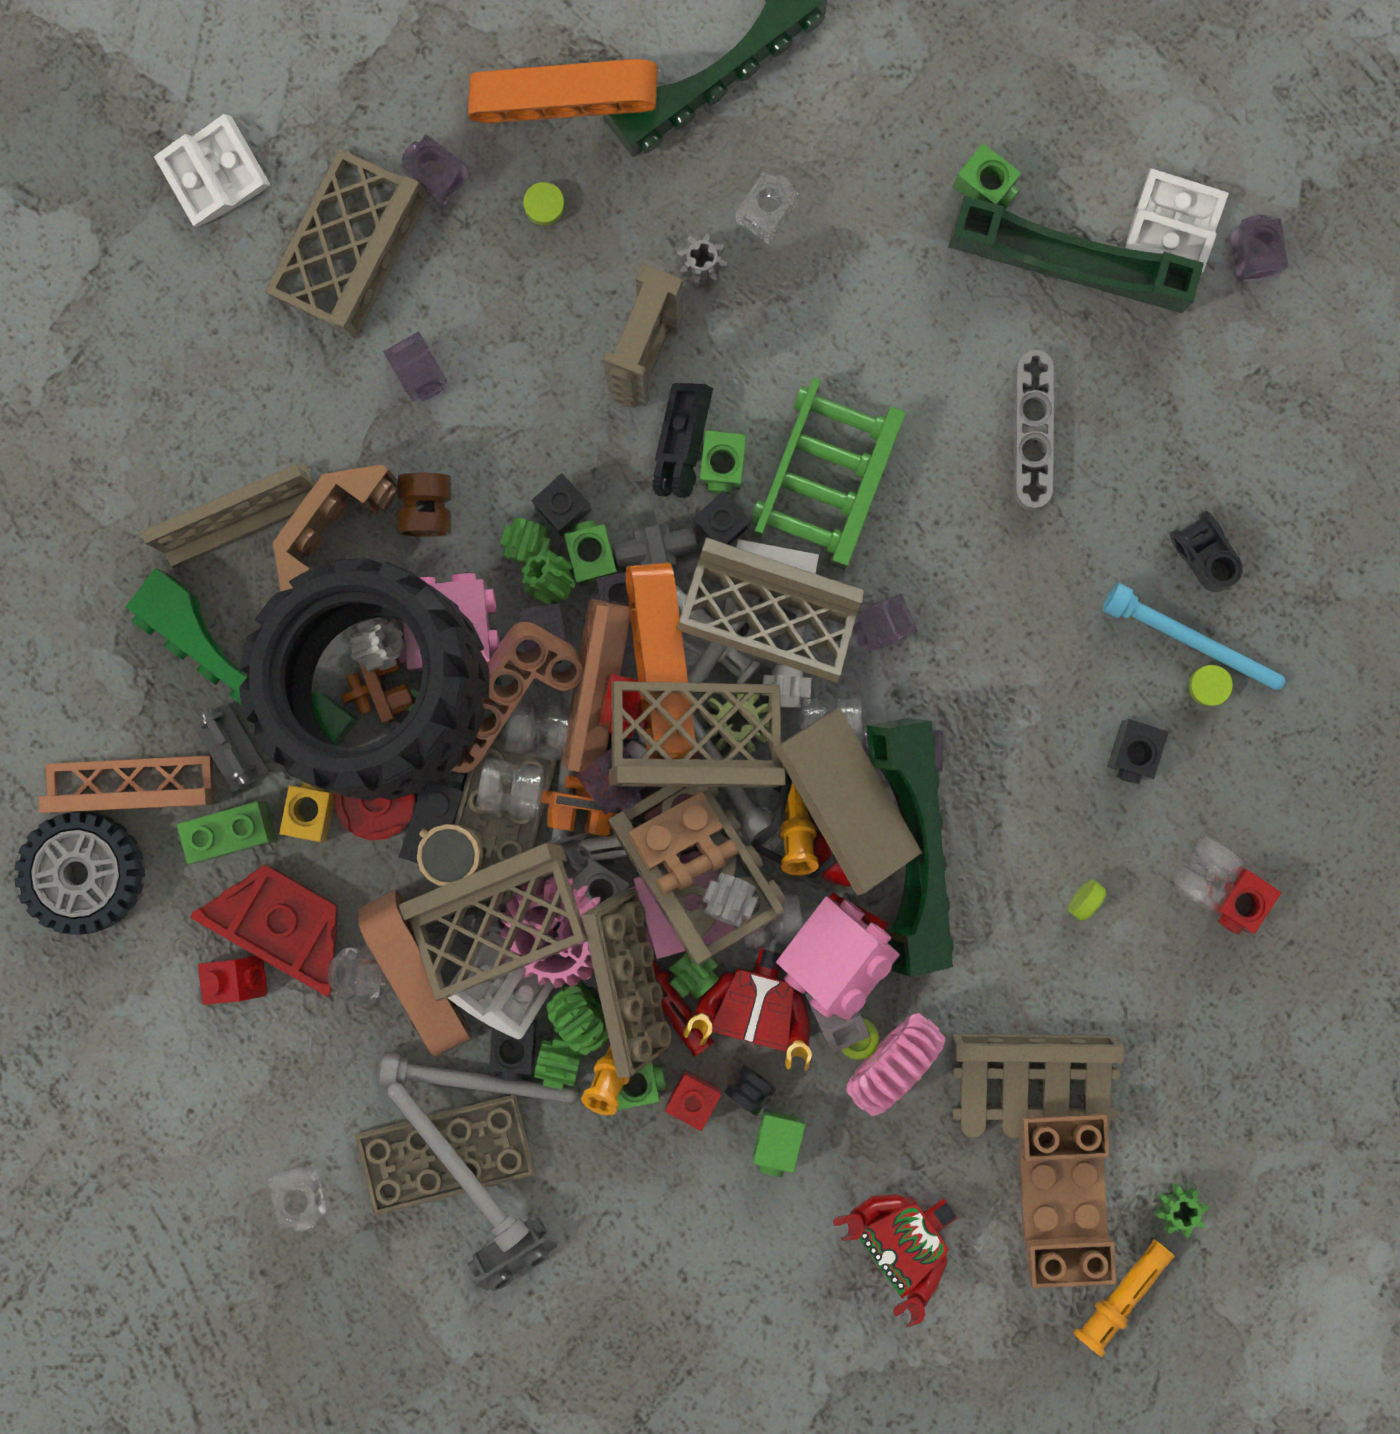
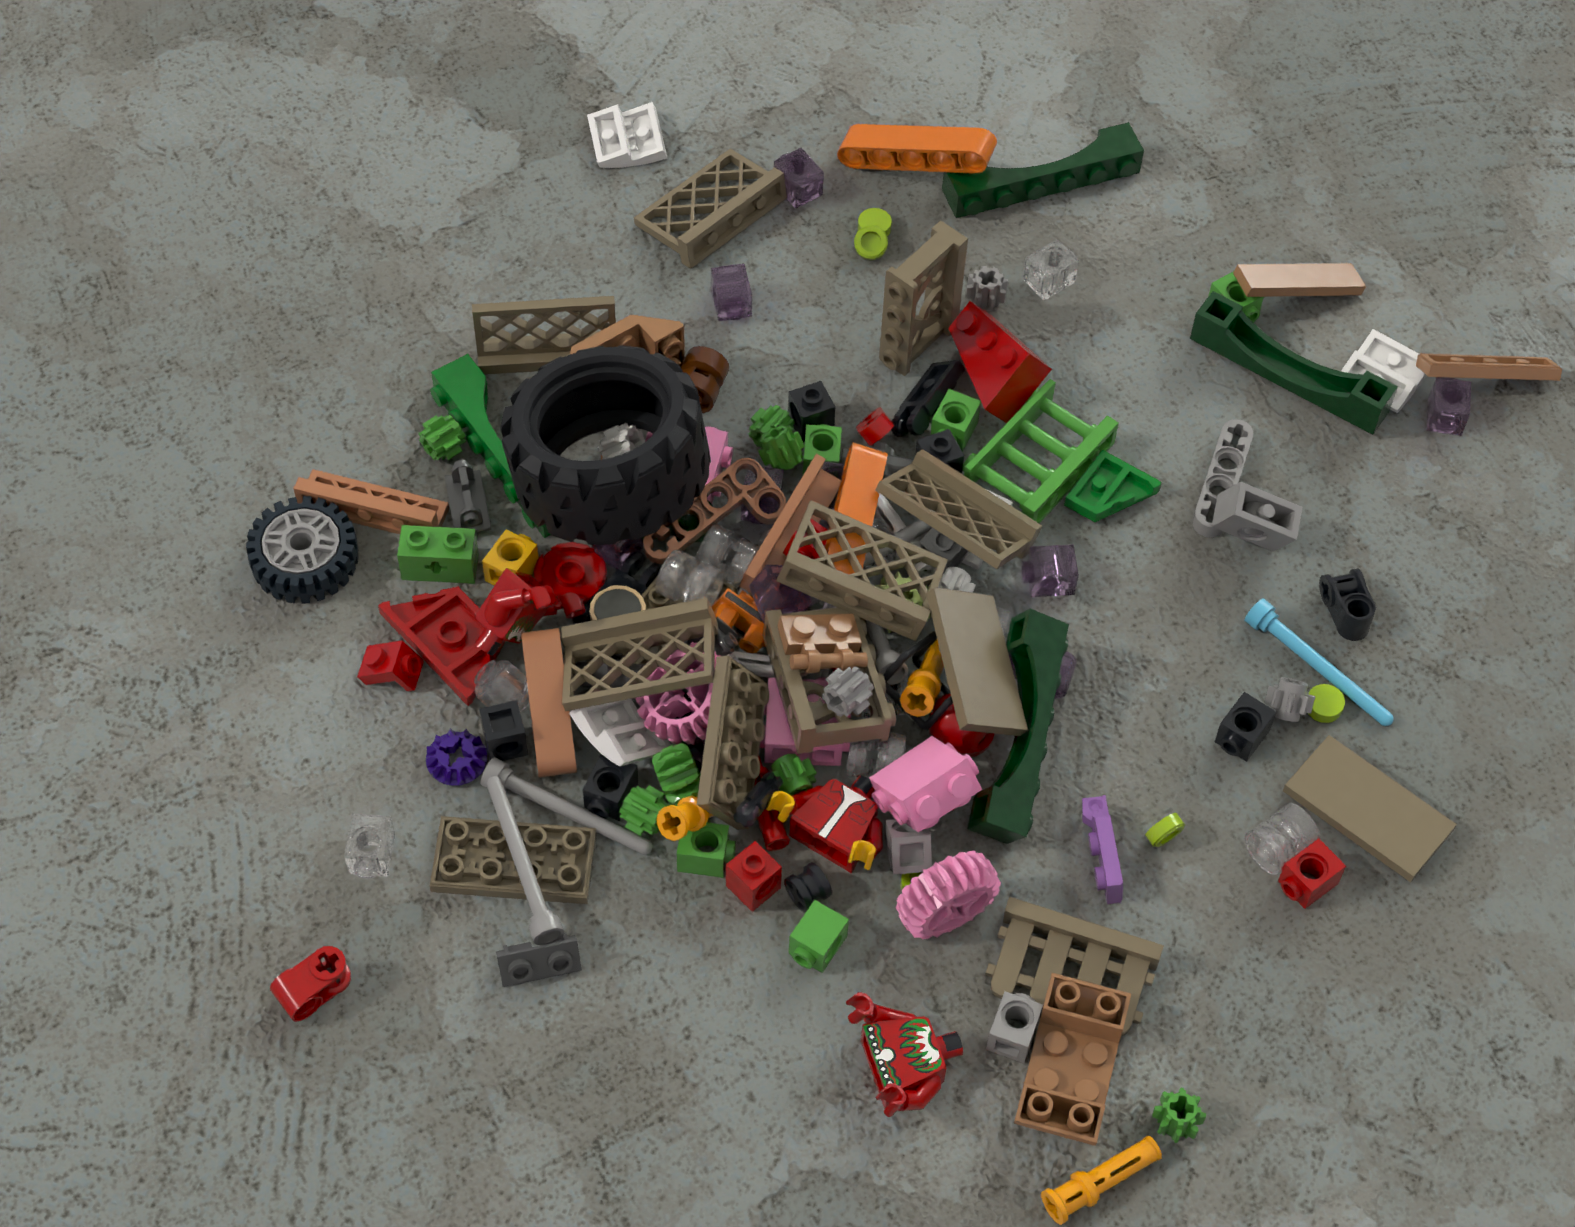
camera: 20 degrees right, 30 degrees down
(170, 680) = (442, 437): none -> bright green gear
(302, 1364) = (309, 984): none -> red piece
(341, 887) = (517, 606): none -> red torso
(355, 1045) = (464, 769): none -> dark purple gear
(382, 1028) = (504, 731): none -> black brick
(549, 236) = (871, 242): none -> lime tile
(639, 507) = (874, 426): none -> red beam
(673, 1031) = (757, 799): none -> black axle
(745, 370) = (996, 361): none -> red wedge
(915, 489) = (1109, 488): none -> green wing
(999, 1189) = (1008, 1040): none -> light grey brick
(1027, 938) = (1103, 844): none -> medium lavender hinge
(1054, 131) = (1299, 279): none -> tile
(1088, 489) = (1257, 516): none -> light grey brick
(1176, 702) = (1290, 699): none -> light grey gear
(1285, 801) = (1369, 808): none -> dark tan tile
(1293, 183) = (1488, 367): none -> medium nougat tile

